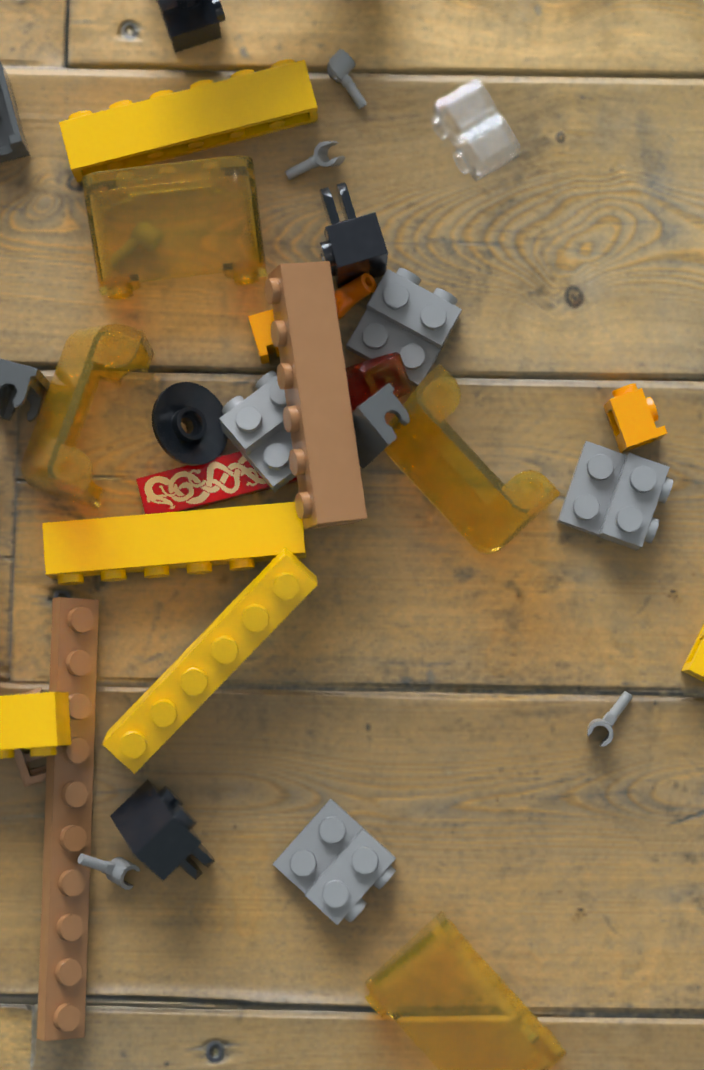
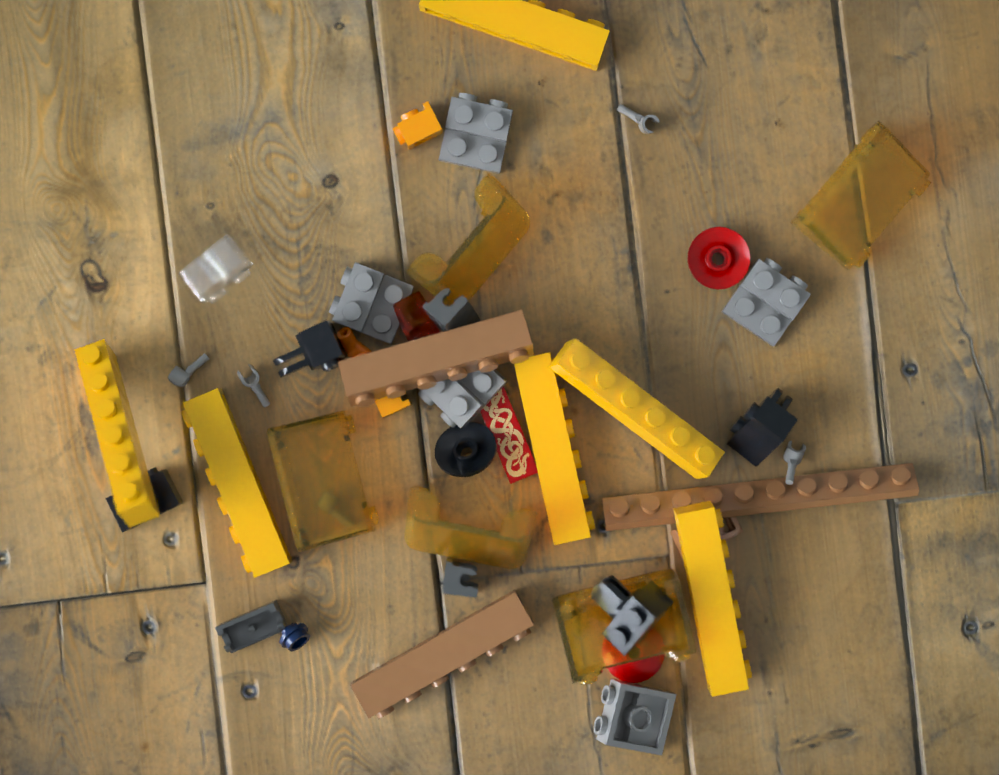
camera: 95 degrees left, 5 degrees up
(420, 820) = (734, 252): none -> red dish

